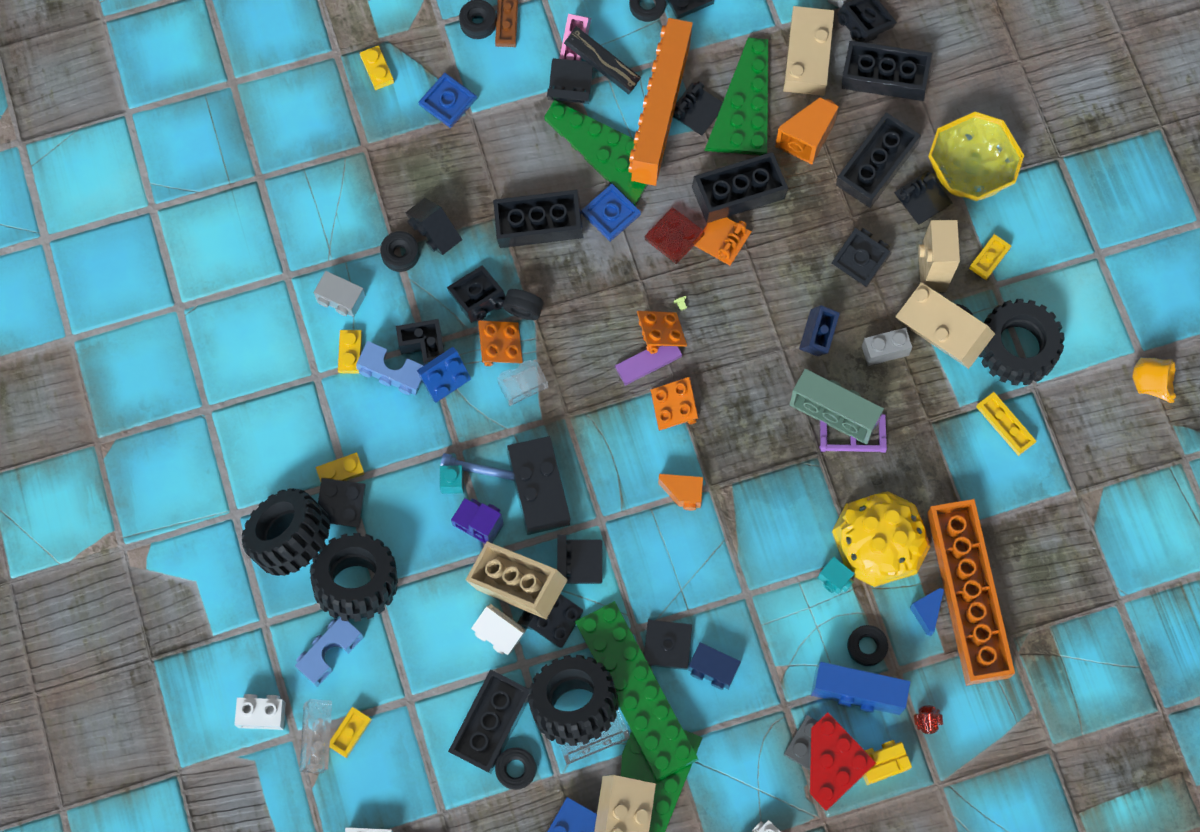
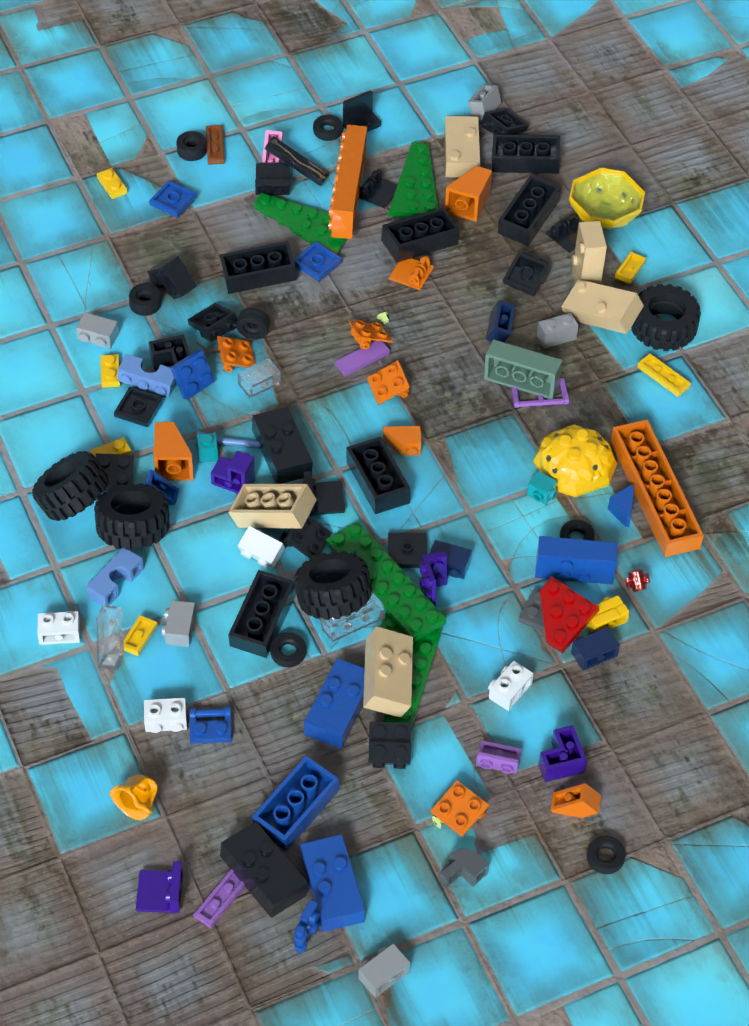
camera: 10 degrees left, 20 degrees down
(378, 409) = (138, 406): none -> black plate
(393, 533) = (163, 485): none -> blue slope
(396, 721) = (179, 623): none -> light grey brick
(405, 489) = (171, 453): none -> orange slope
(645, 540) = (378, 475): none -> black brick
(674, 235) = (371, 272): clear red plate -> none
(690, 686) = (433, 573): none -> dark purple bracket
(865, 807) = (595, 648): none -> dark blue brick

